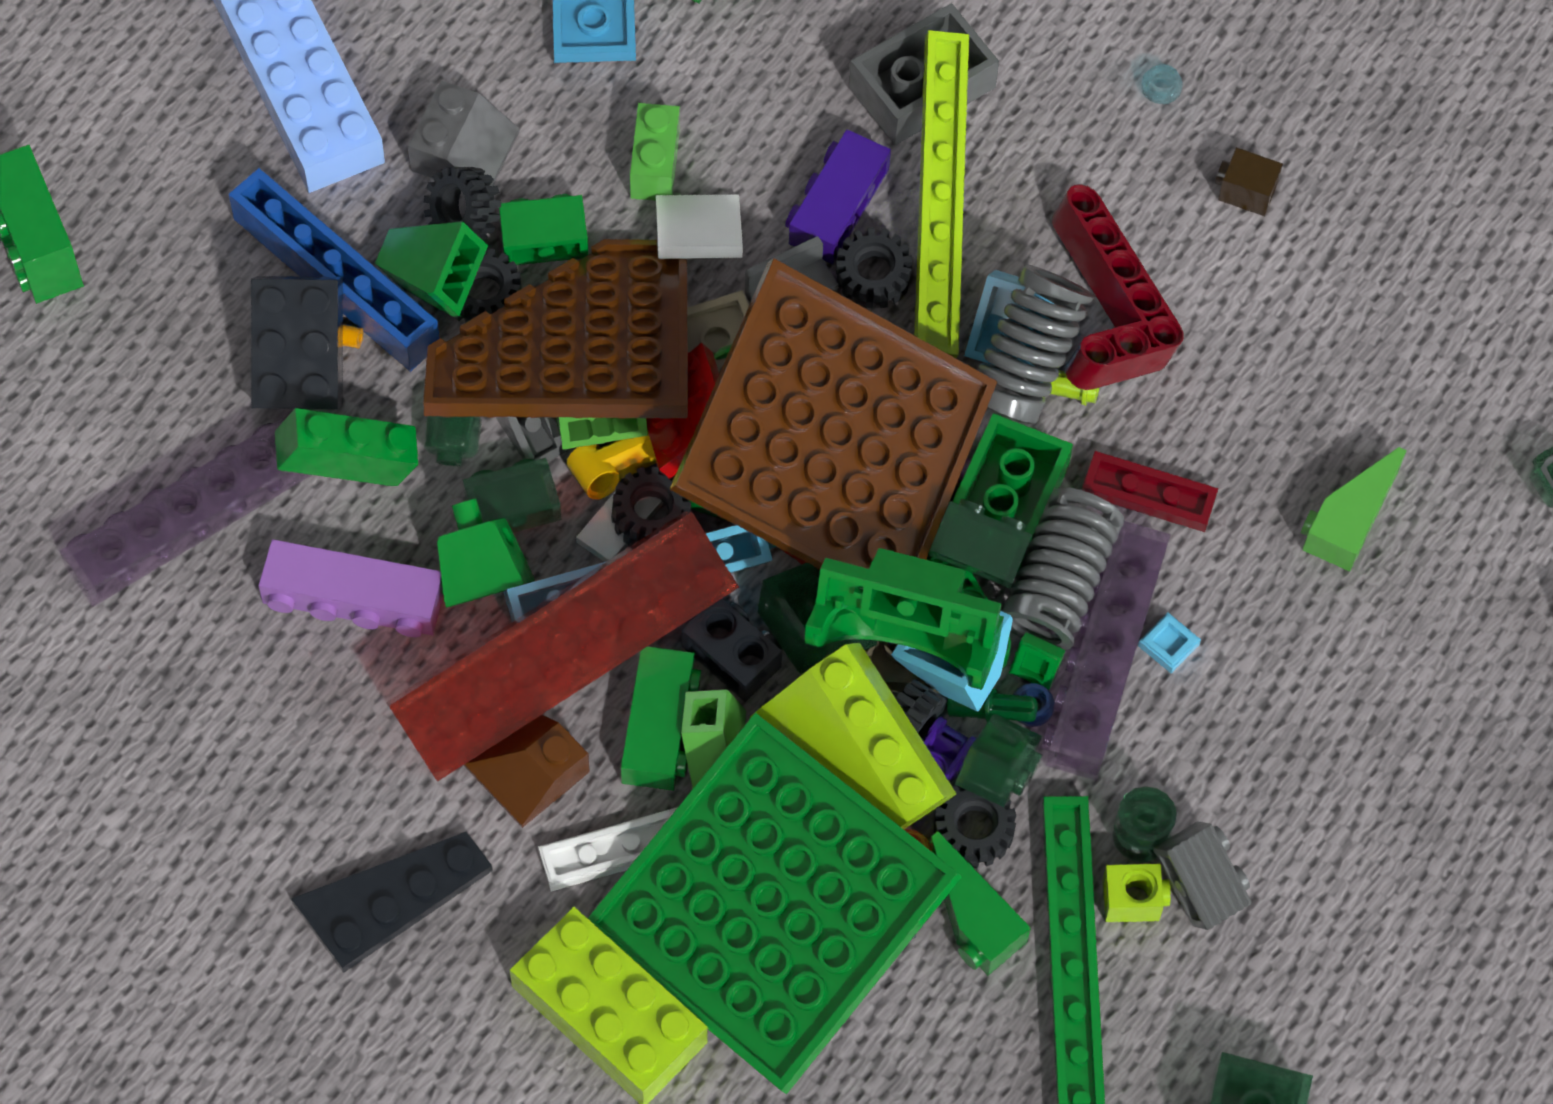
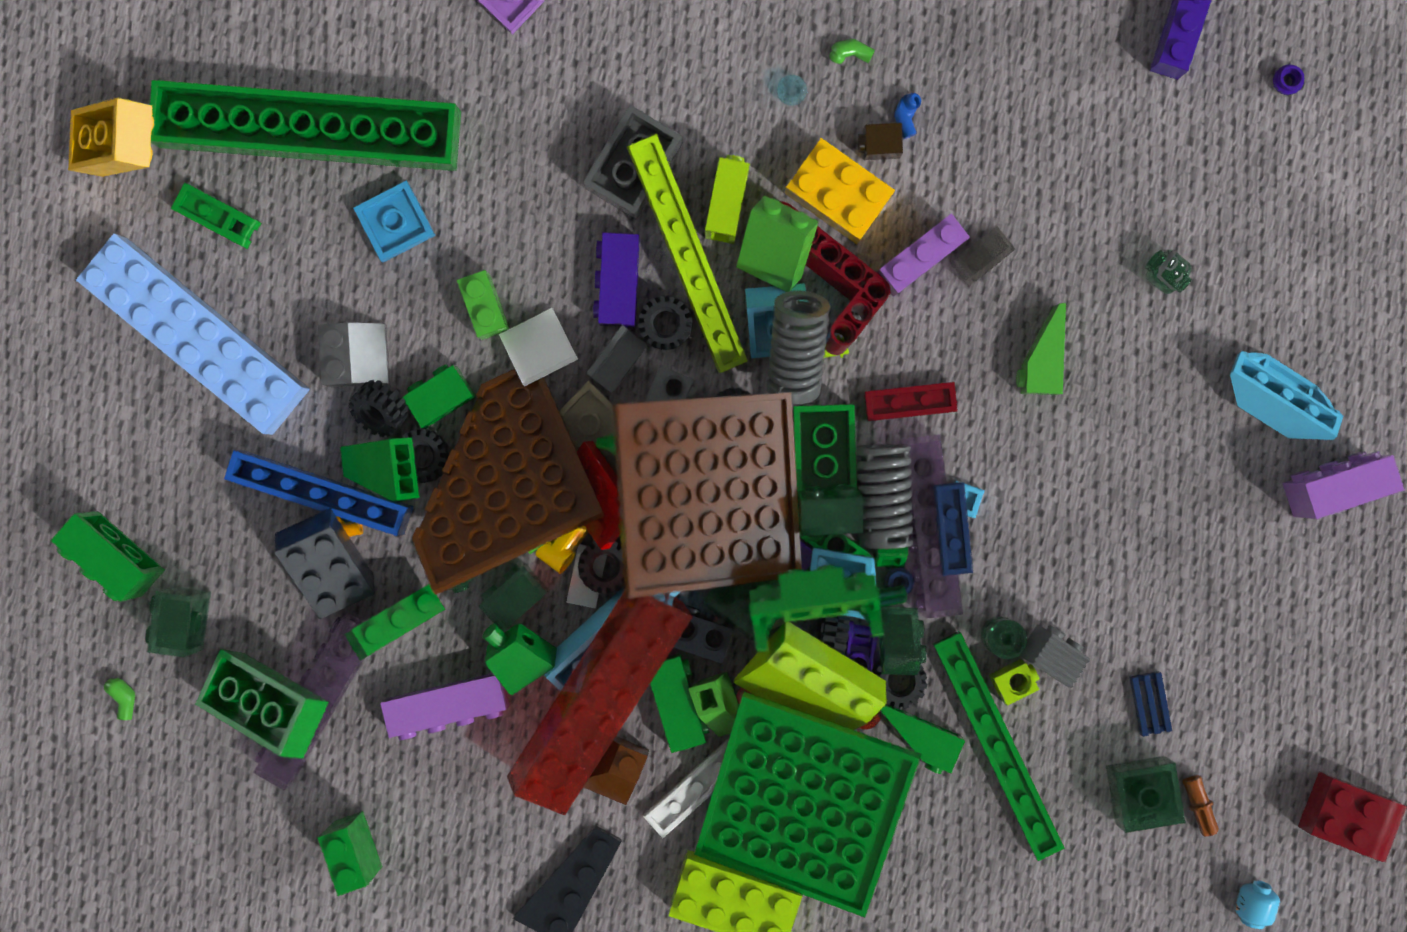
camera: 25 degrees left, 25 degrees up
(73, 333) = (177, 621): none -> clear green brick
(125, 464) = (261, 704): none -> green brick
(129, 698) = (350, 853): none -> green brick
(1020, 158) = (727, 199): none -> lime brick
(1061, 219) = (776, 243): none -> bright green brick
(1134, 650) = (952, 529): none -> dark blue tile
(1168, 212) = (839, 191): none -> yellow brick
(1244, 325) = (923, 254): none -> medium lavender brick
(1260, 70) = (848, 48): none -> bright green arm
(1295, 166) = (905, 112): none -> blue arm
(1320, 361) = (982, 256): none -> clear smoke slope
(1321, 977) = (1163, 706): none -> dark blue tile

